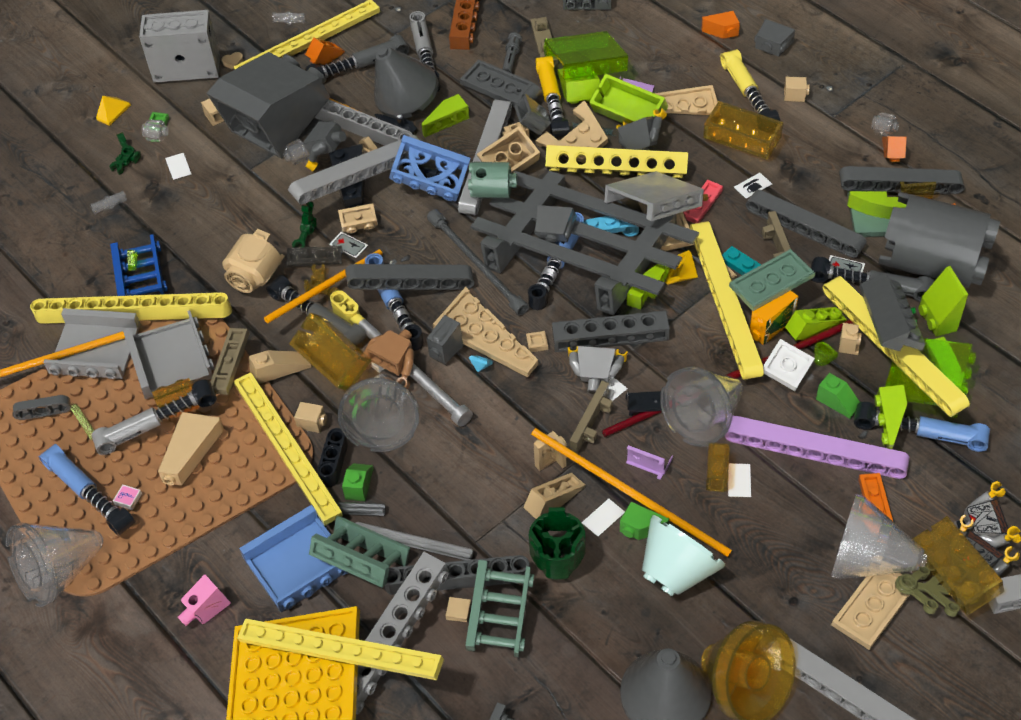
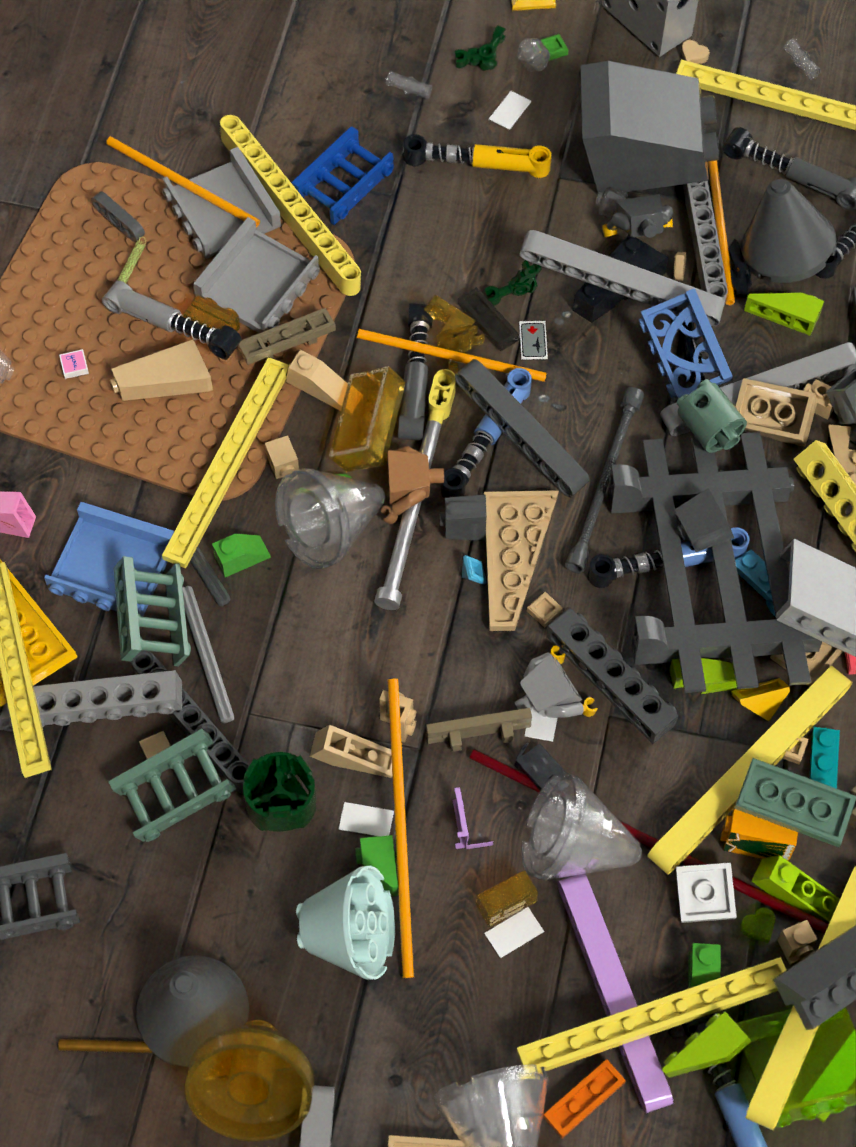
camera: 50 degrees right, 10 degrees up
(56, 460) = (67, 275): piece -> none
(132, 260) = (347, 157): clear neon green tile -> none
(199, 194) = (535, 160): none -> piece
(251, 262) = (420, 267): tan piece -> none
(297, 268) = (454, 319): none -> clear yellow slope
(323, 51) = (778, 127): orange slope -> none
(331, 465) = (243, 521): black beam -> none
(358, 218) = (571, 324): tan bracket -> none
(852, 433) = (652, 1017): none -> light yellow plate

